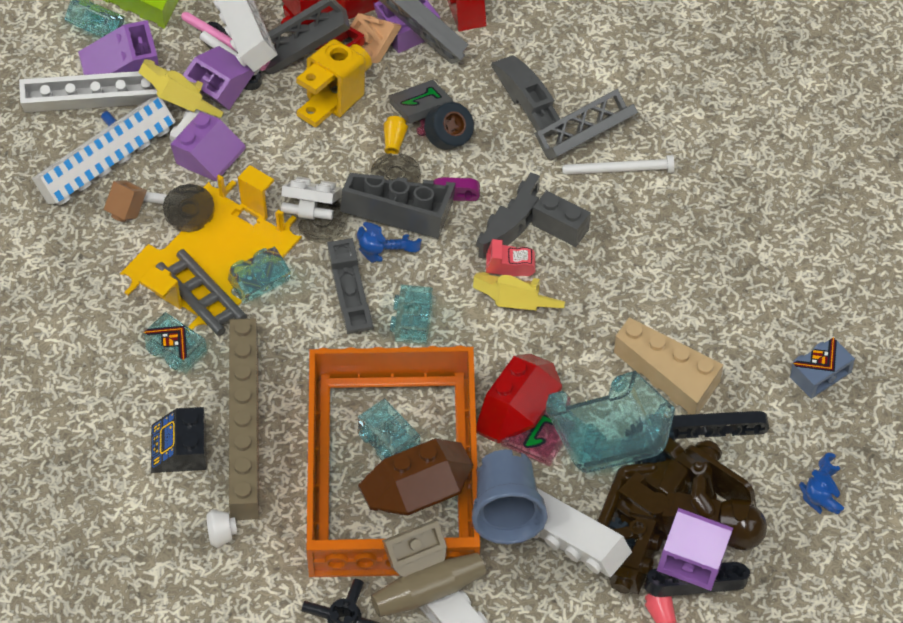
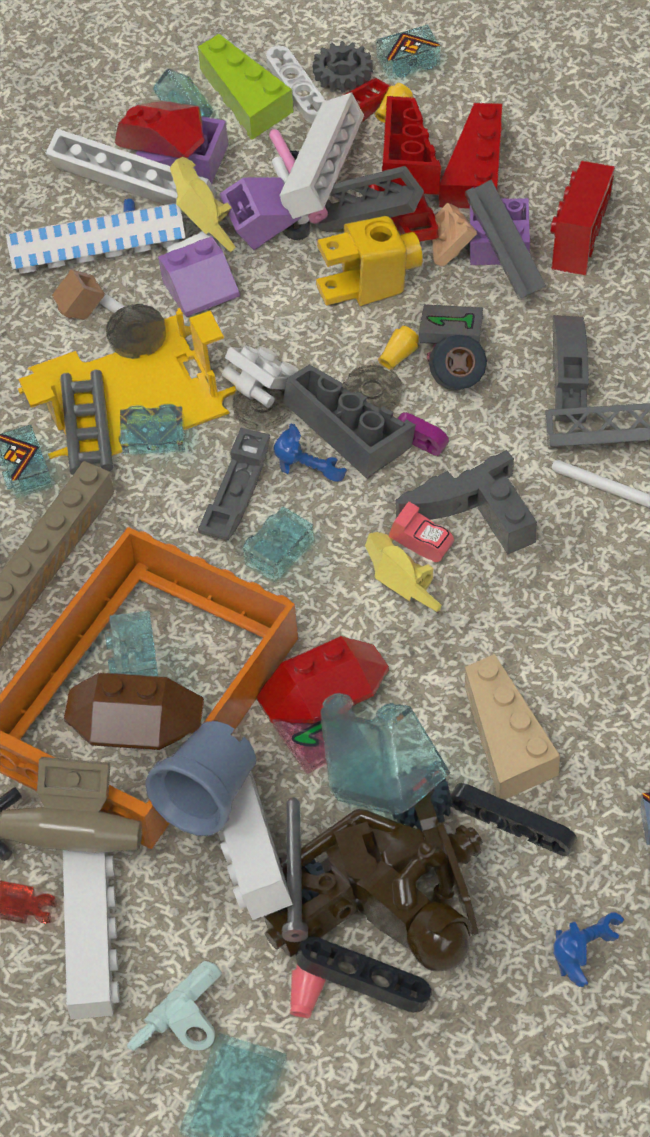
camera: 35 degrees right, 0 degrees up
(102, 46) = (161, 129): none -> red wedge
(642, 568) = (294, 930): none -> flat silver bar
(694, 549) = (367, 938): slope -> none

